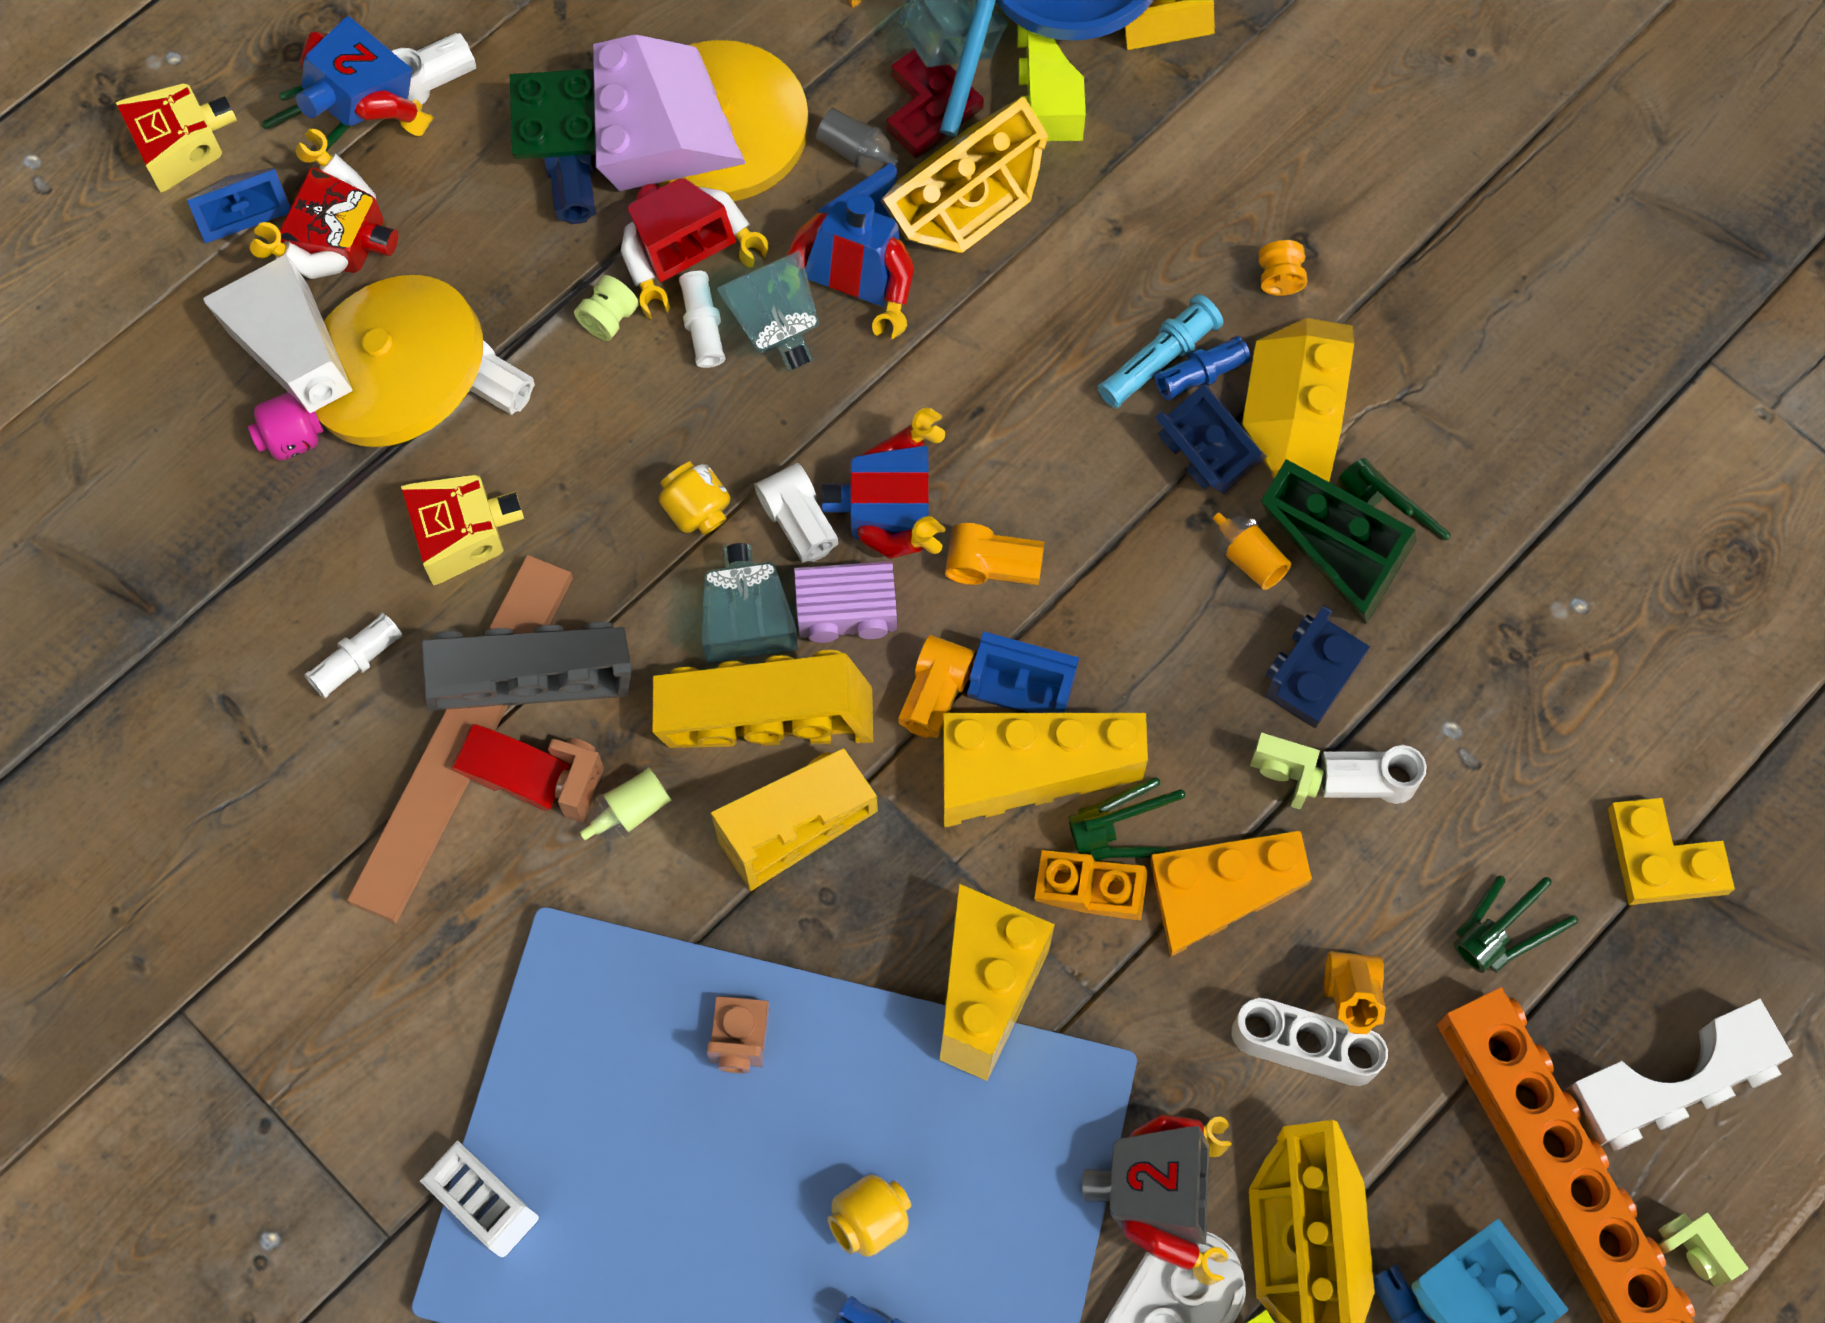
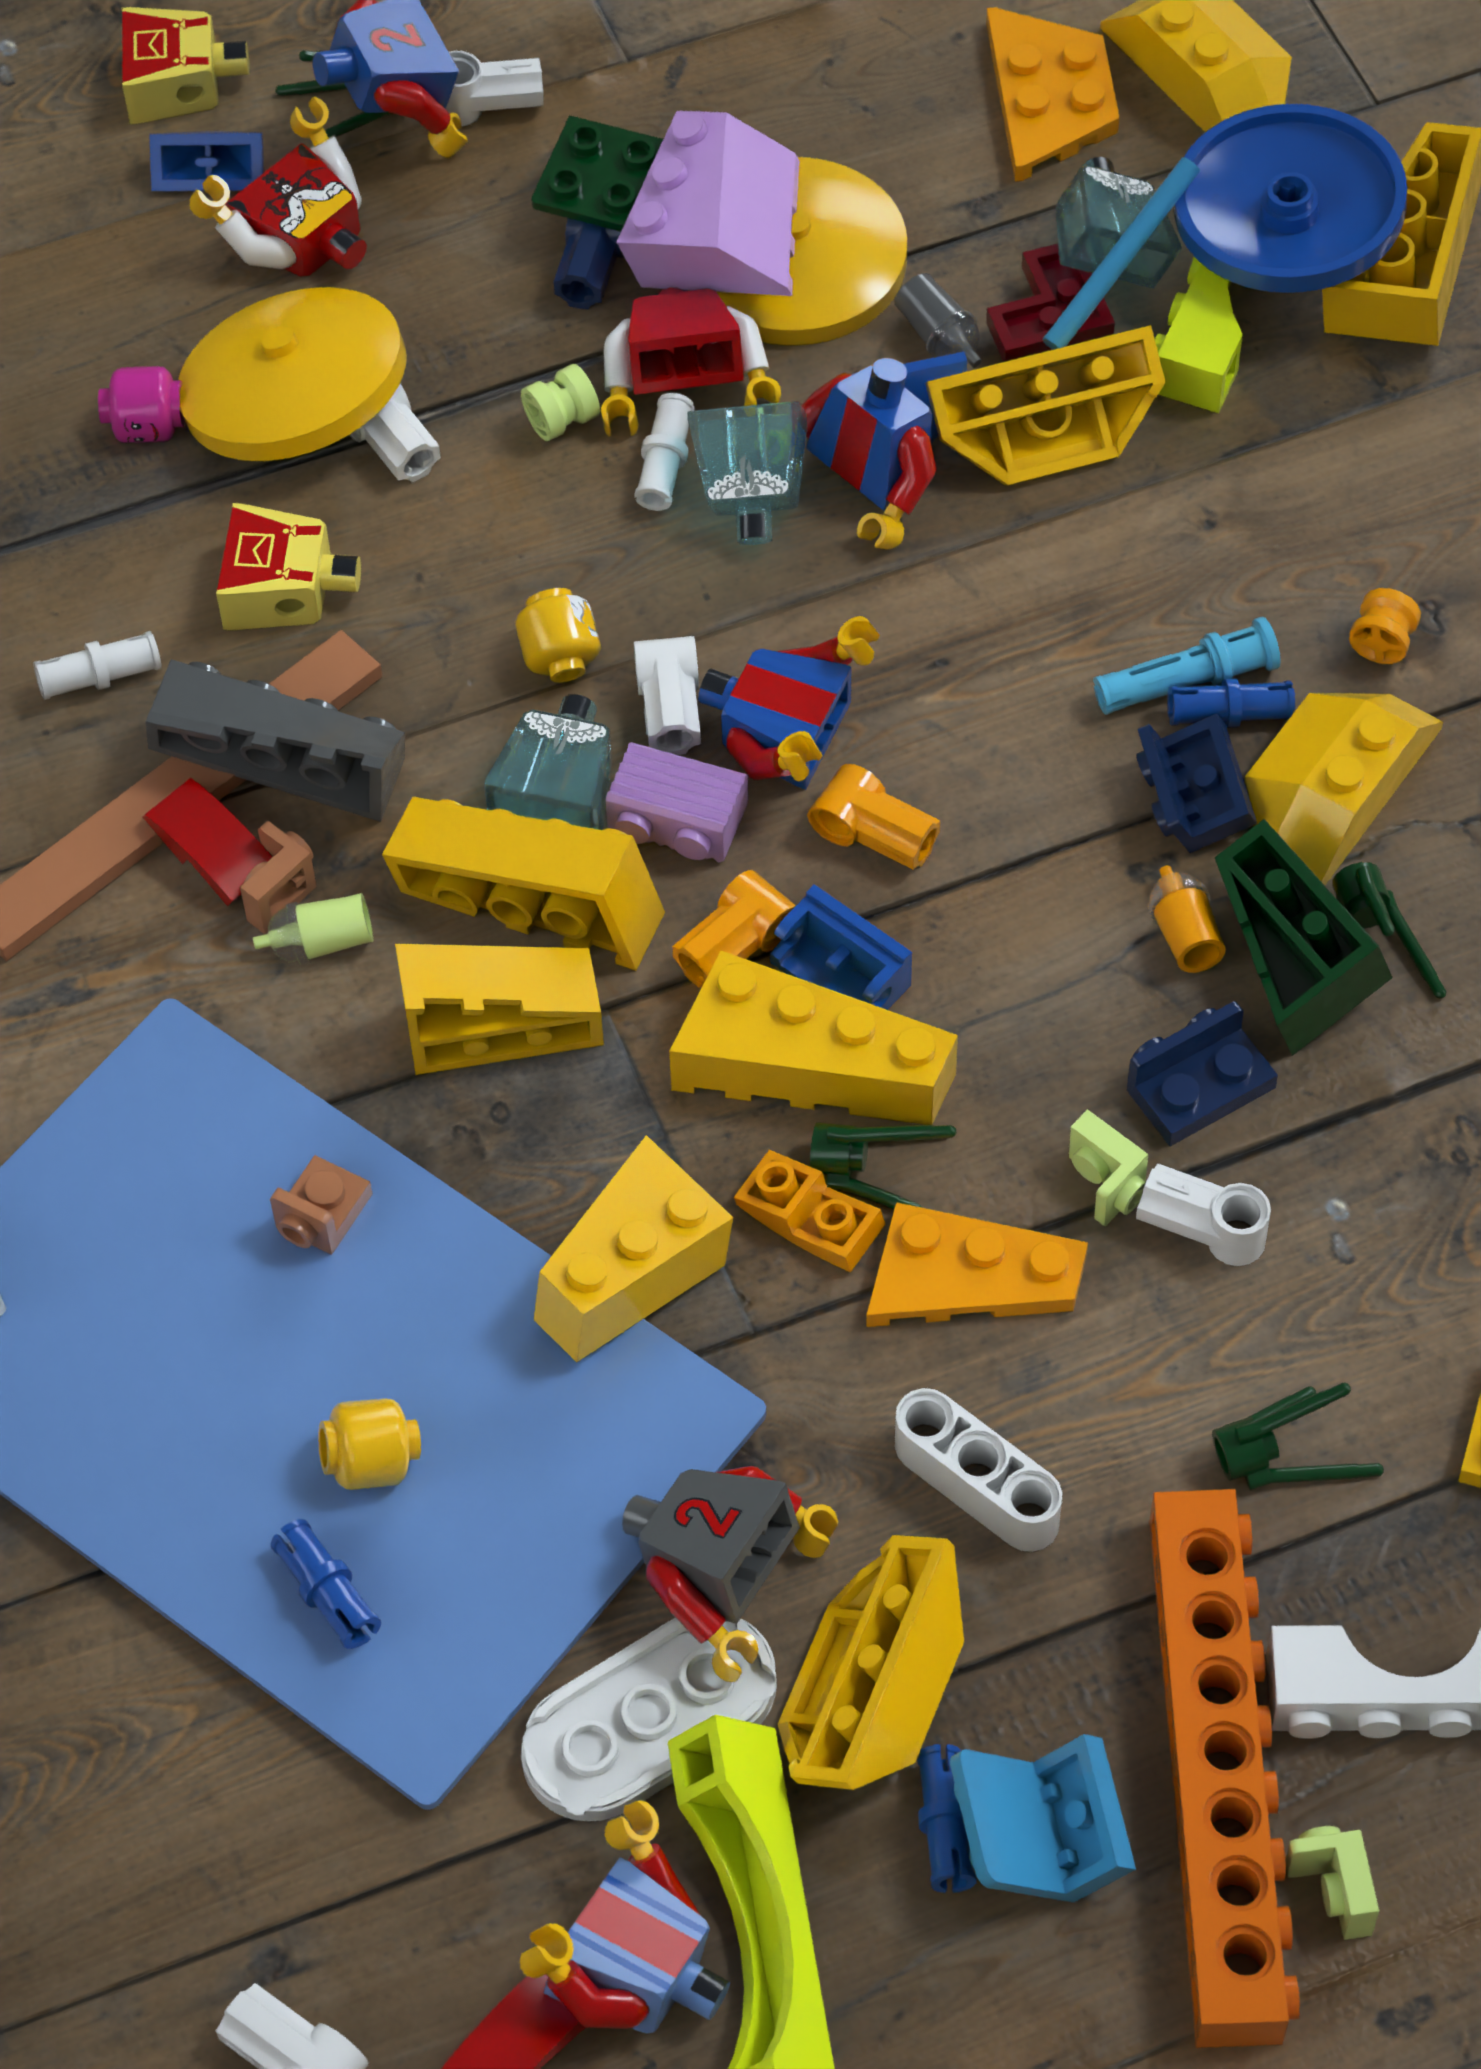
camera: 25 degrees right, 10 degrees down
(283, 330) = (186, 299): white slope -> none
(1356, 987) = (1061, 1428): light orange piece -> none

